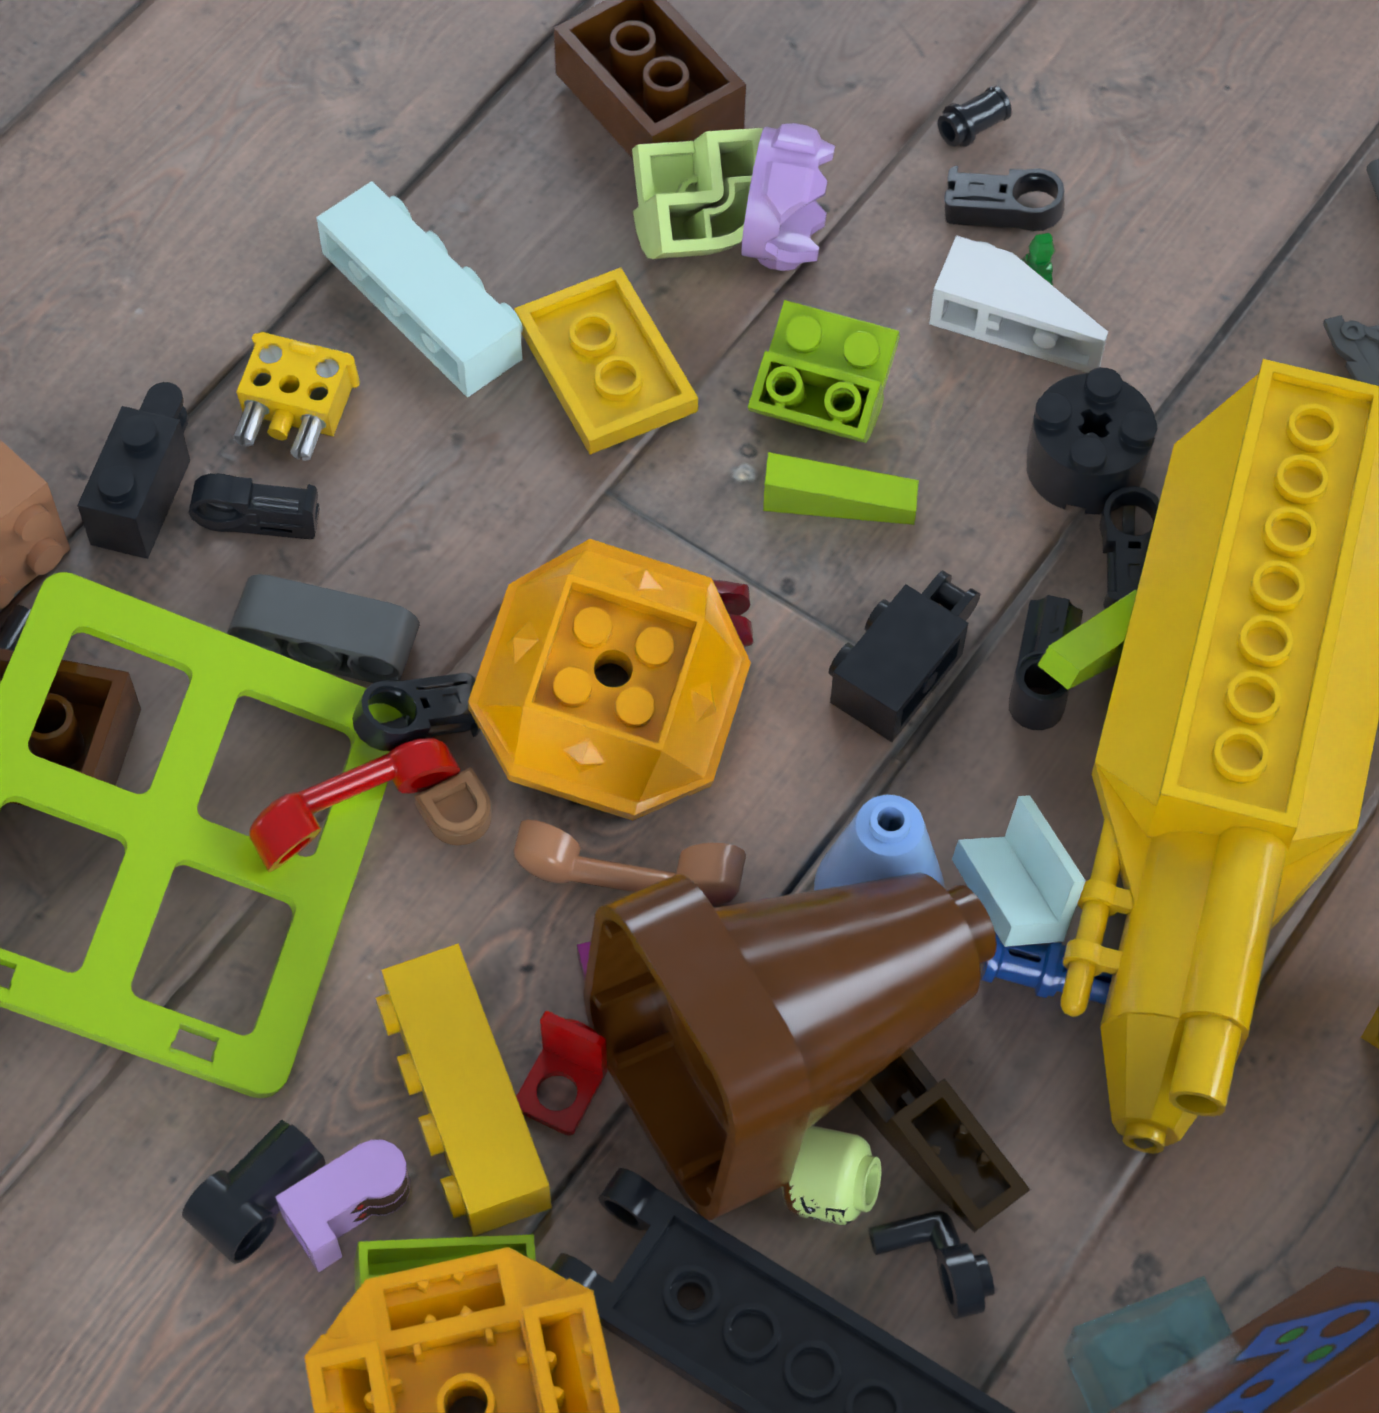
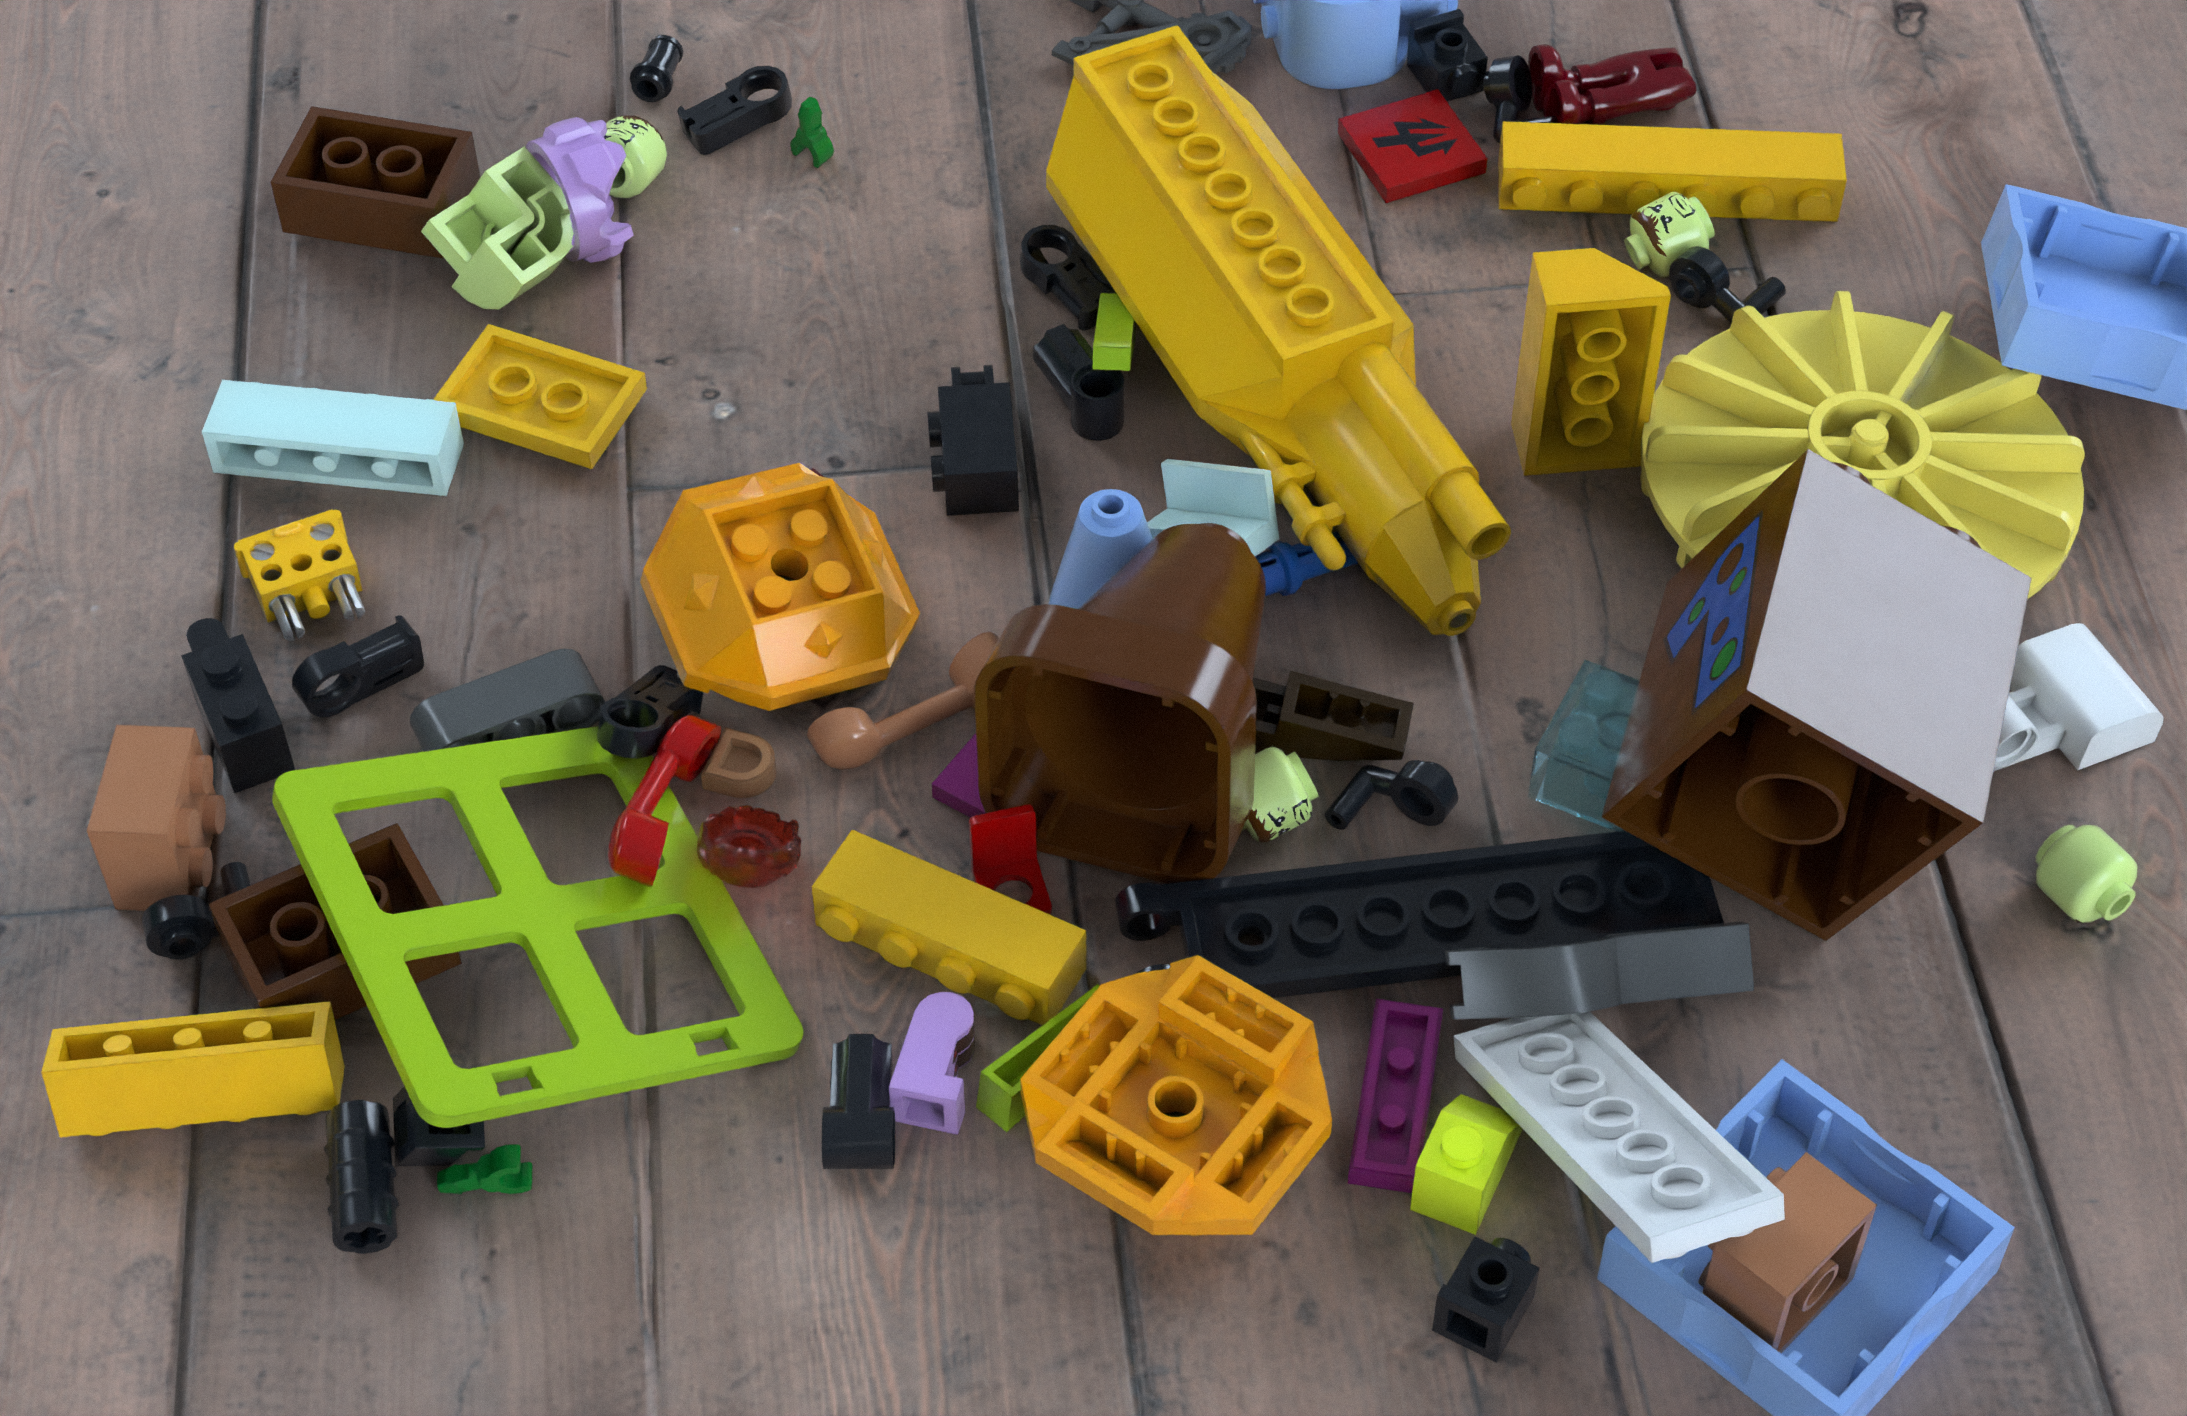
camera: 40 degrees left, 10 degrees down
(384, 889) = (748, 846): none -> clear red hair
(825, 372) = (726, 294): lime brick -> none
(837, 491) = (810, 373): lime piece -> none
(868, 184) = (644, 154): none -> yellowish green head
(1008, 304) = (820, 172): white slope -> none
(1089, 440) = (970, 220): black brick -> none

